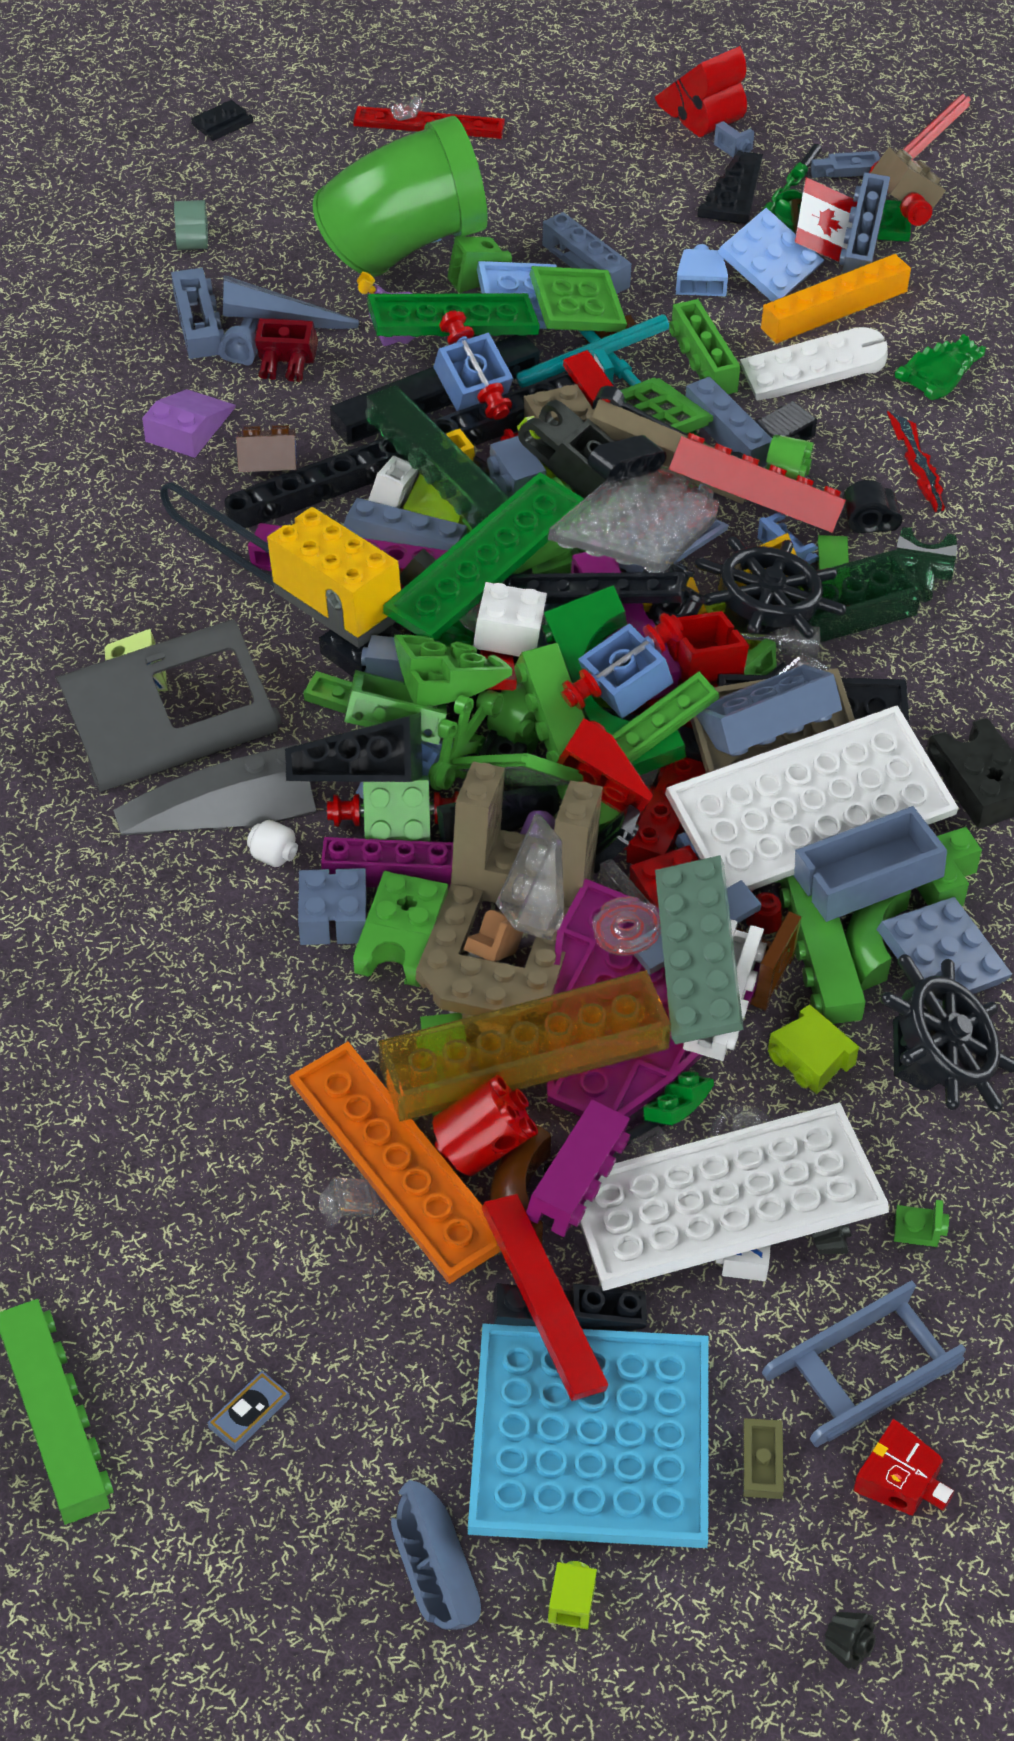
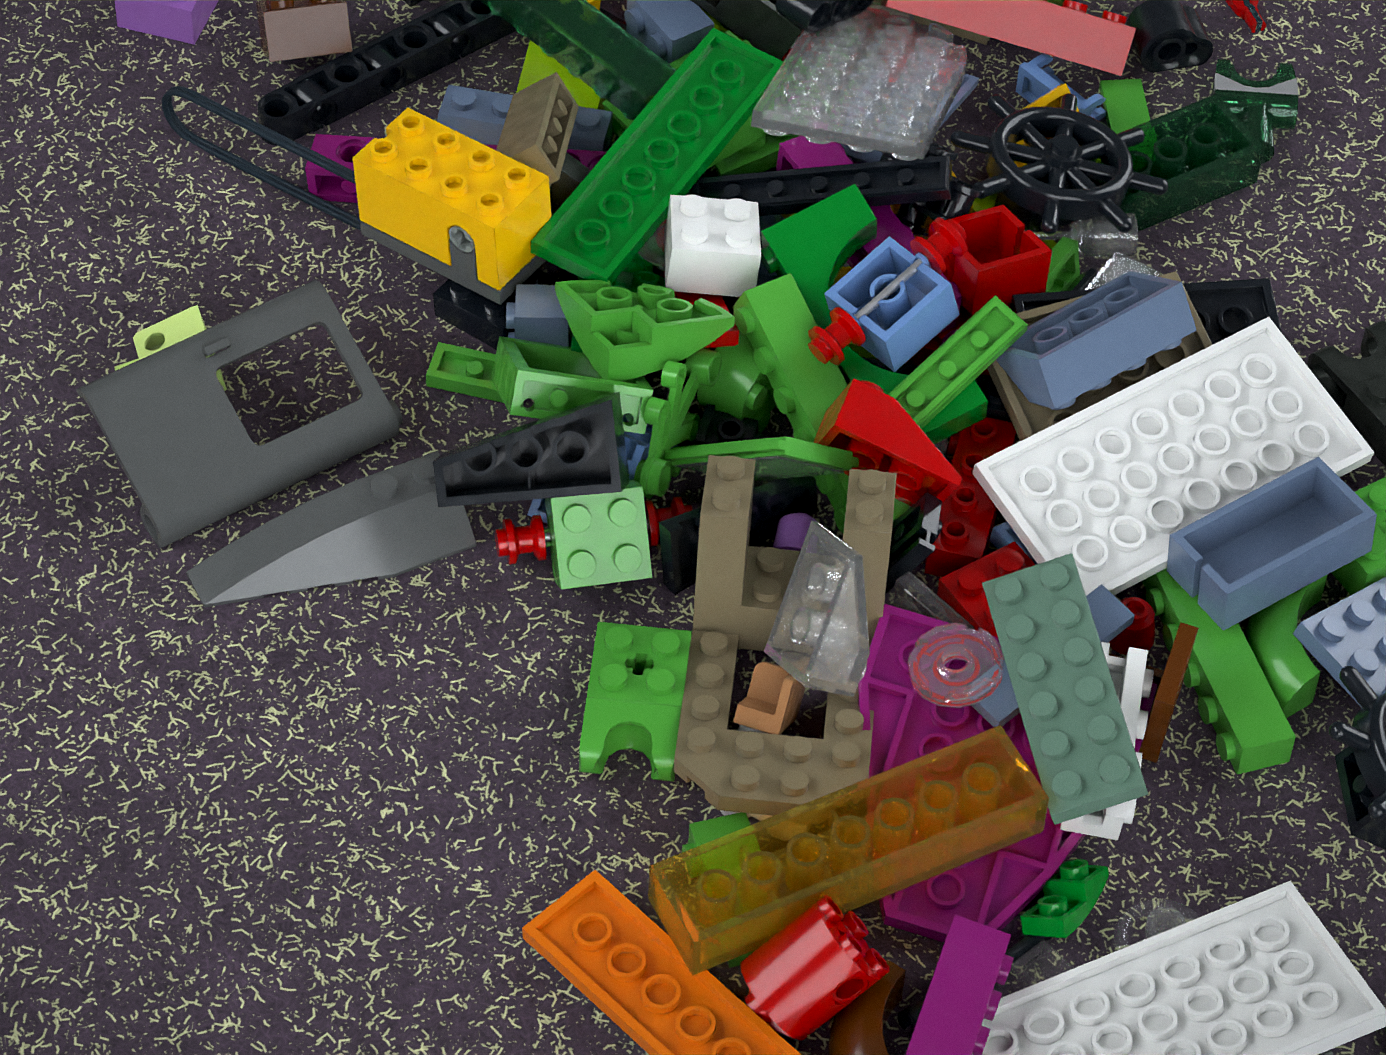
camera: 10 degrees left, 0 degrees up
(272, 843) = (426, 597): white head -> none
(329, 898) = (531, 668): sand blue piece -> none
(393, 483) = (495, 58): white brick -> none
(407, 530) = (540, 126): none -> dark tan brick
(409, 858) = (569, 609): magenta brick -> none
(812, 1049) = (1233, 810): lime hips -> none

